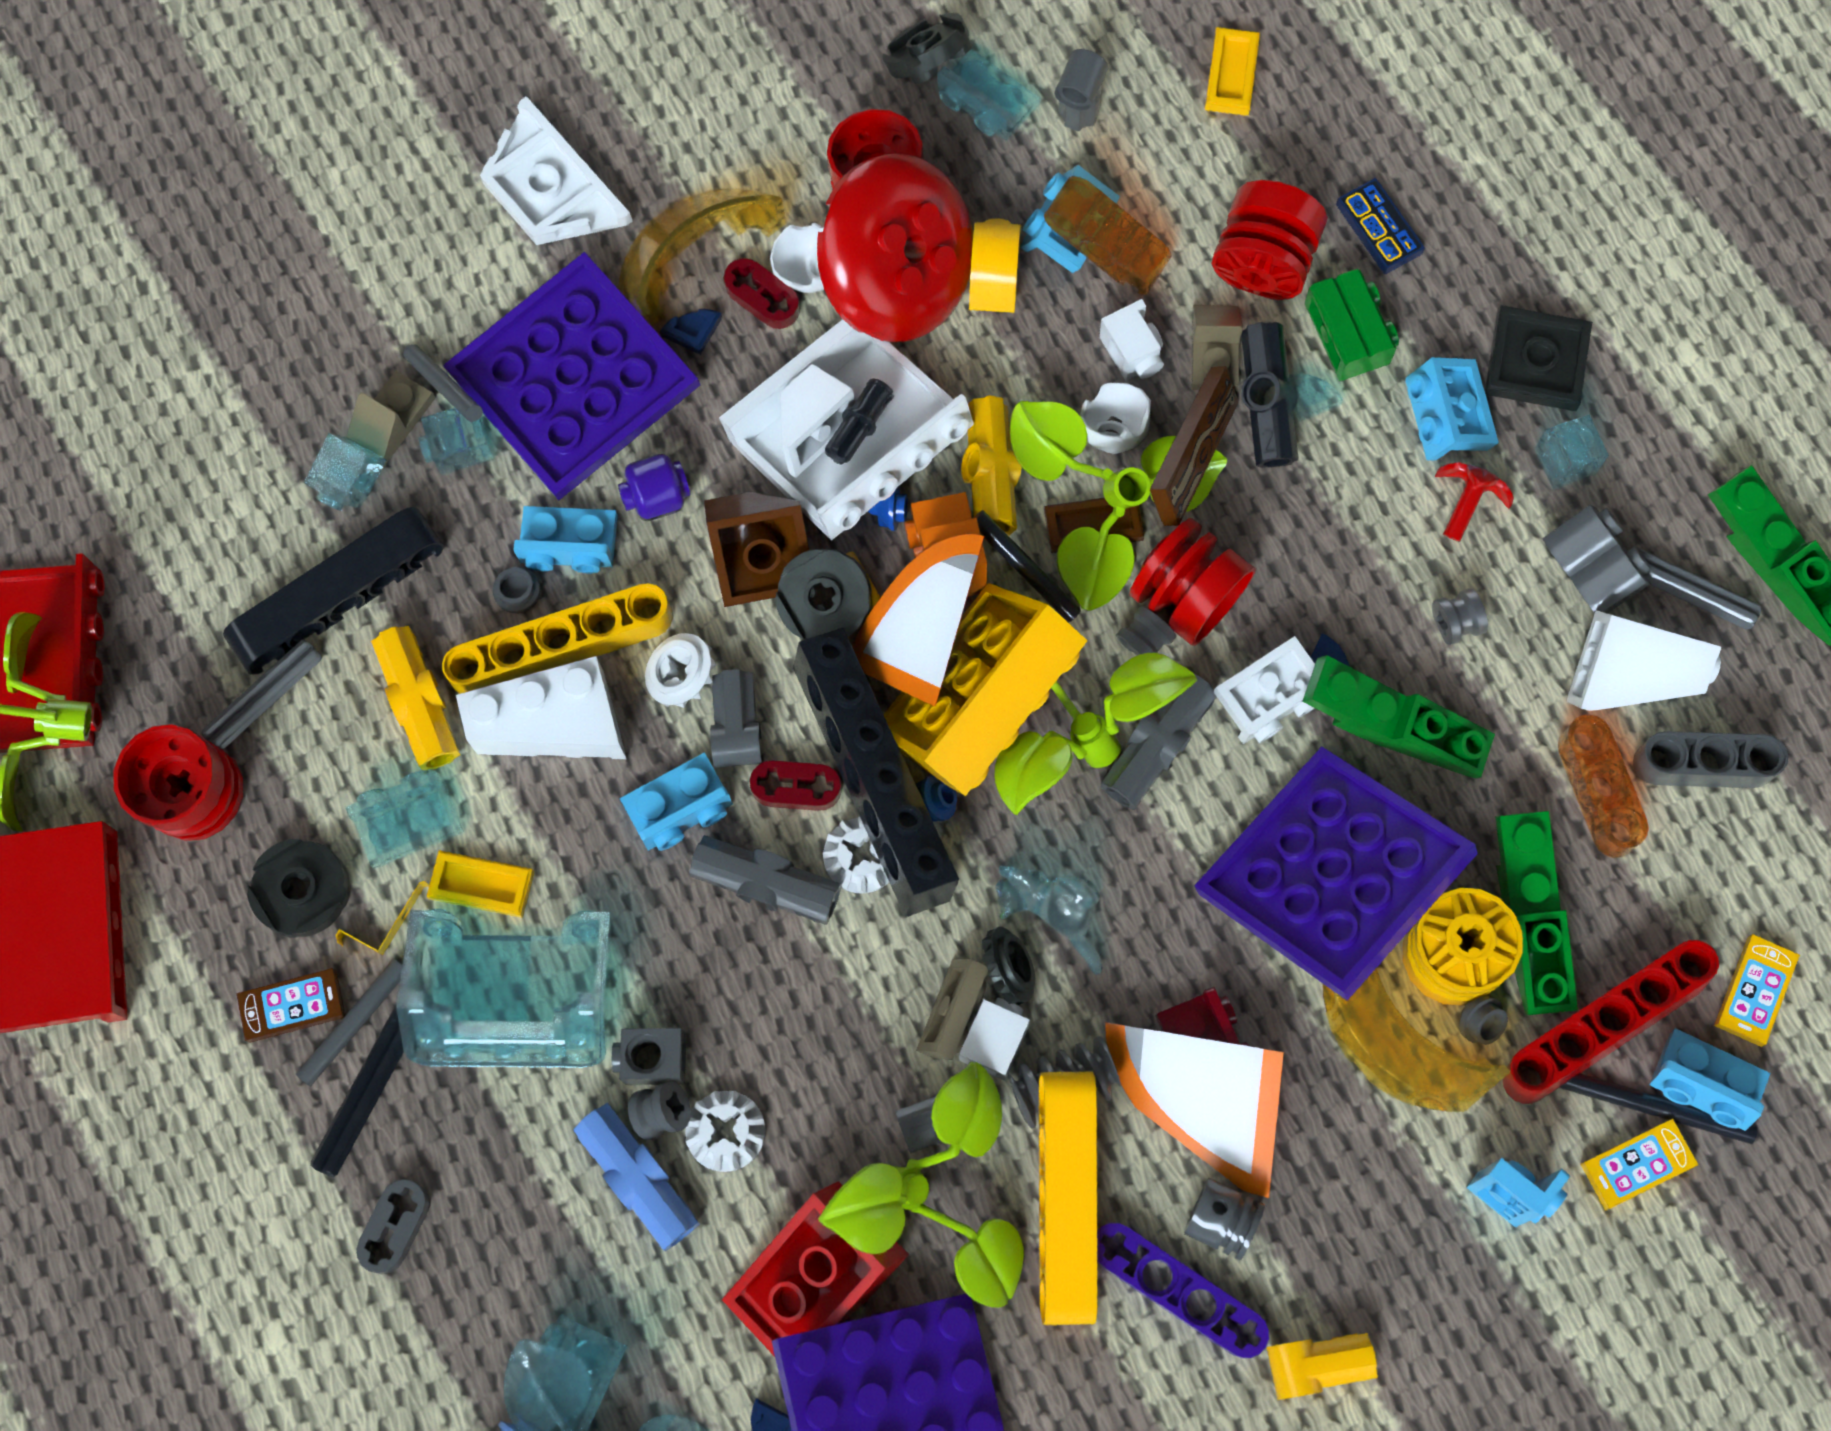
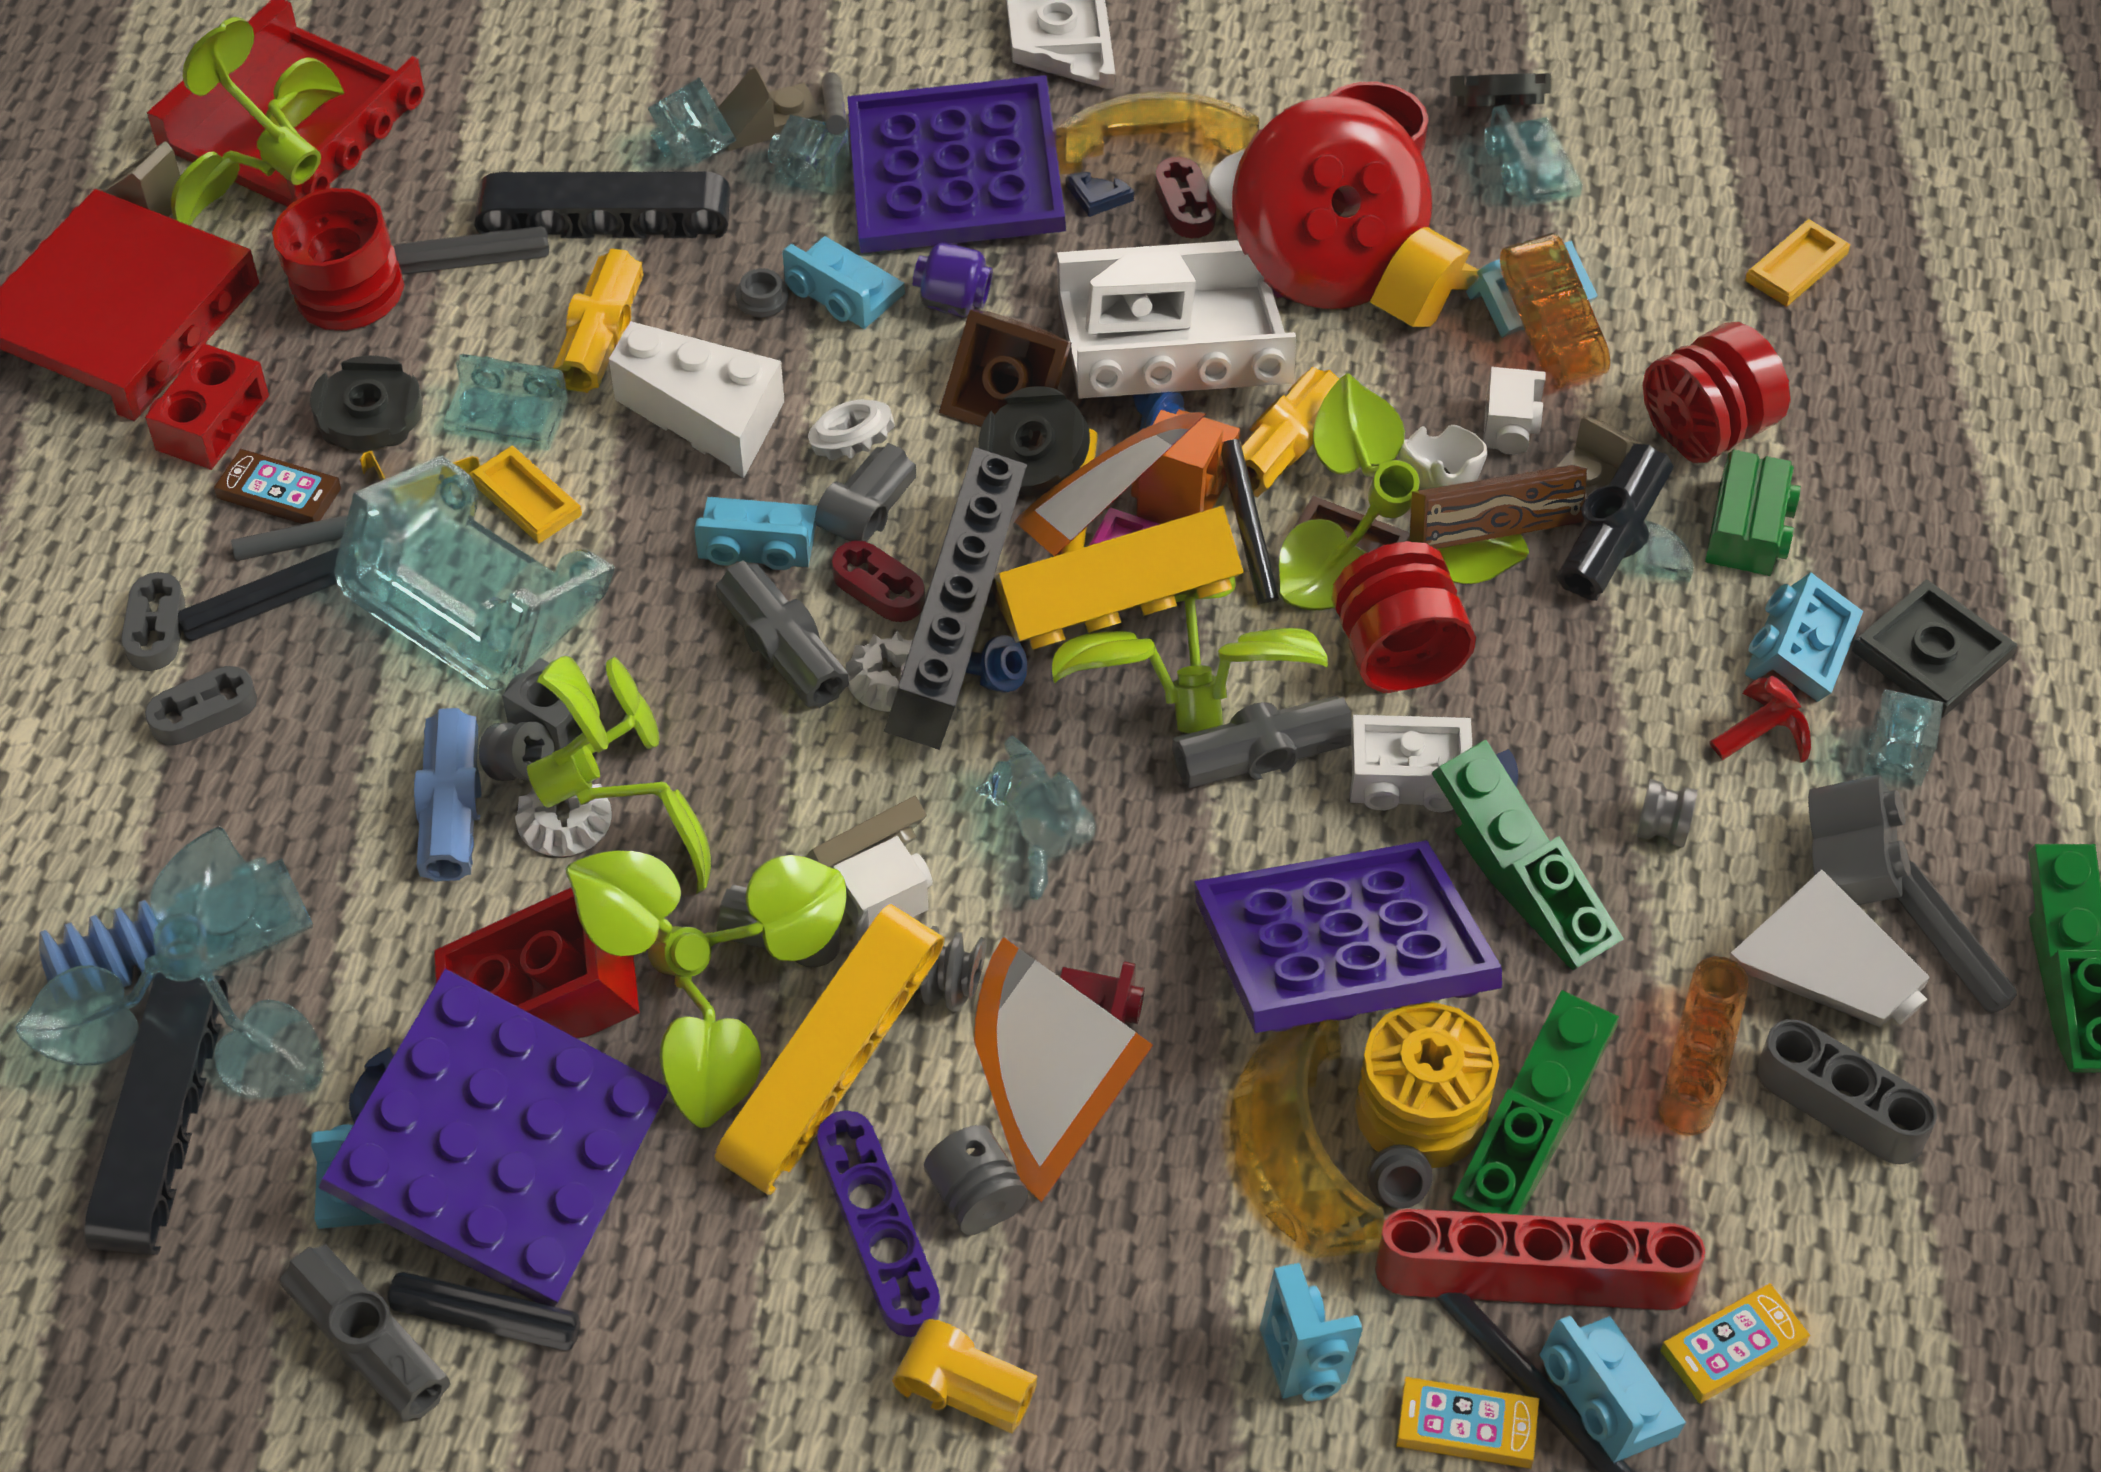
camera: 30 degrees right, 20 degrees down
(192, 972) = (207, 406): none -> red brick
(286, 1190) = (141, 620): none -> dark grey beam
(576, 622) = (810, 353): yellow beam -> none
(730, 1099) = (573, 767): none -> lime plant
(859, 421) = (1182, 315): black axle -> none
(1009, 965) = (953, 851): pearl dark grey gear -> none
(1081, 89) = (1619, 183): dark grey piece -> none
(1146, 633) = (1335, 644): dark grey wheel -> none
(1380, 226) = (1851, 457): tile -> none

